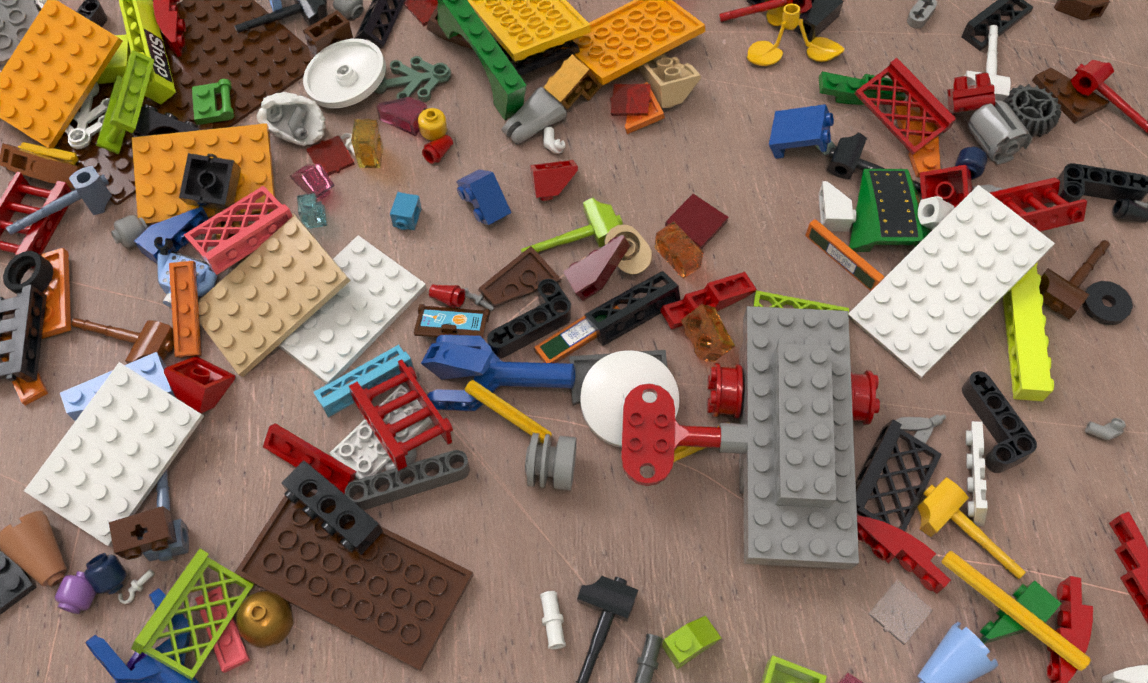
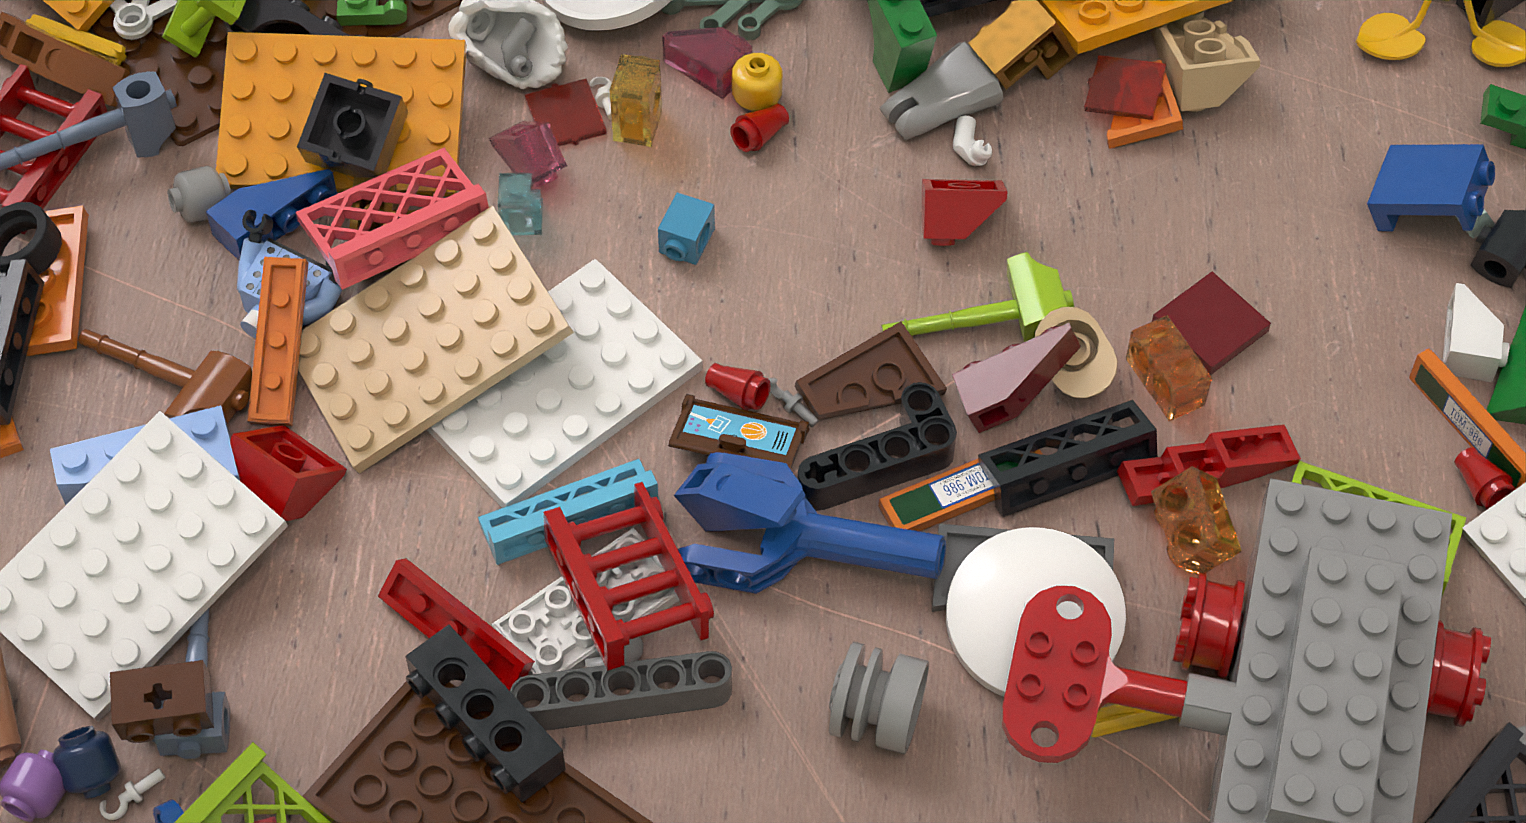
camera: 10 degrees right, 5 degrees down
(485, 194) = (833, 219): blue brick -> none
(505, 410) = (809, 595): yellow axle -> none
(854, 285) = (1484, 479): none -> red cone

